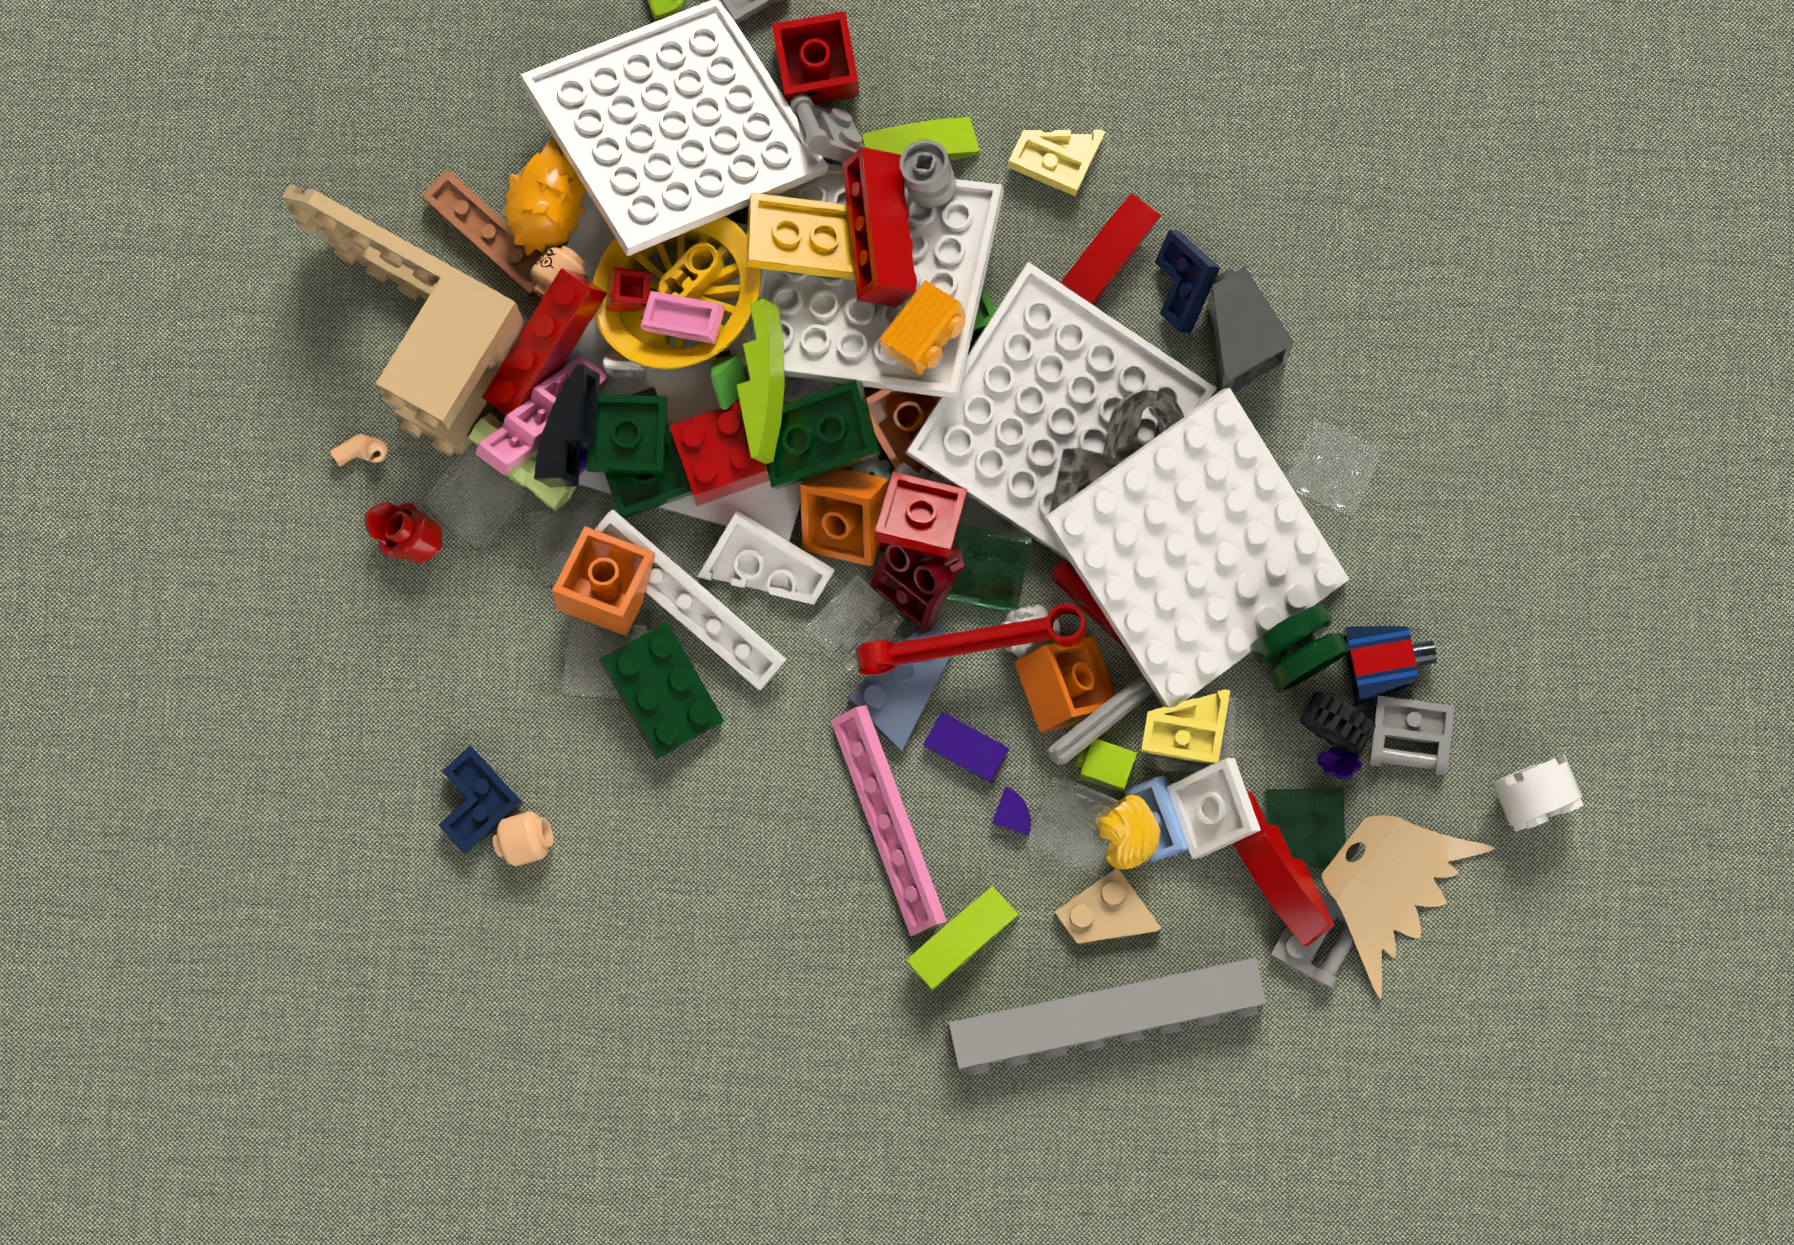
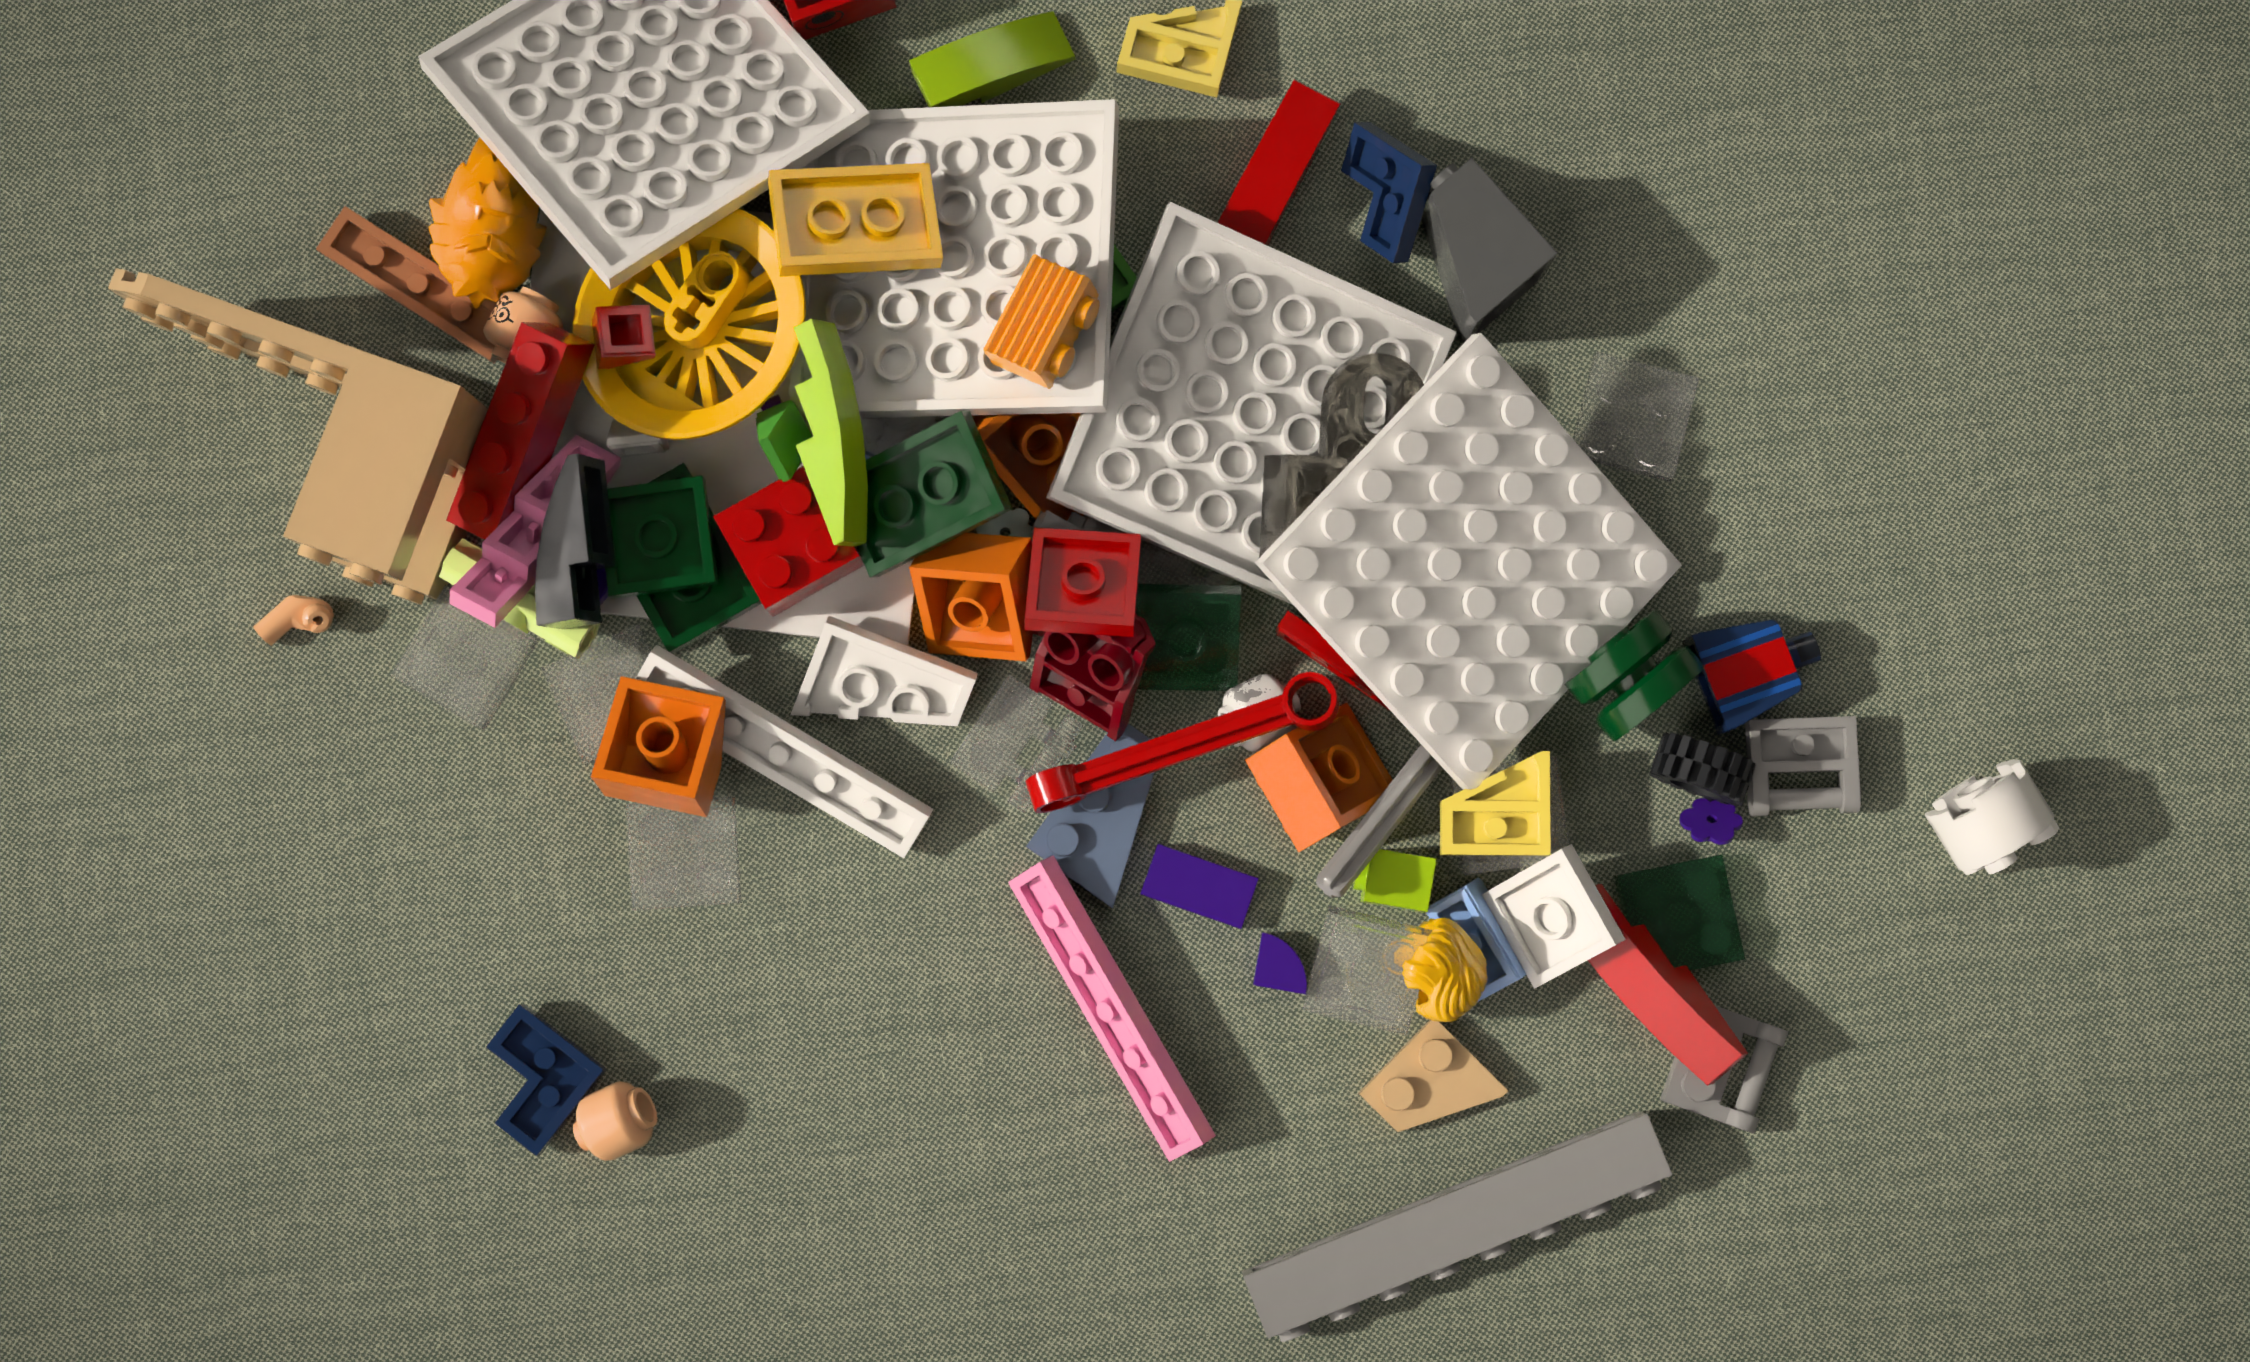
camera: 10 degrees left, 5 degrees up
(404, 532) = (374, 723): red head -> none
(661, 690) = (768, 883): dark green plate -> none
(682, 317) = (704, 362): bright pink tile -> none
(828, 131) = (864, 64): light grey plate -> none
(879, 227) = (956, 189): red brick -> none
(928, 173) = (1010, 101): light grey wheel -> none
(961, 938) = (1240, 1154): lime slope -> none
(1388, 882) = (1812, 968): tan piece -> none

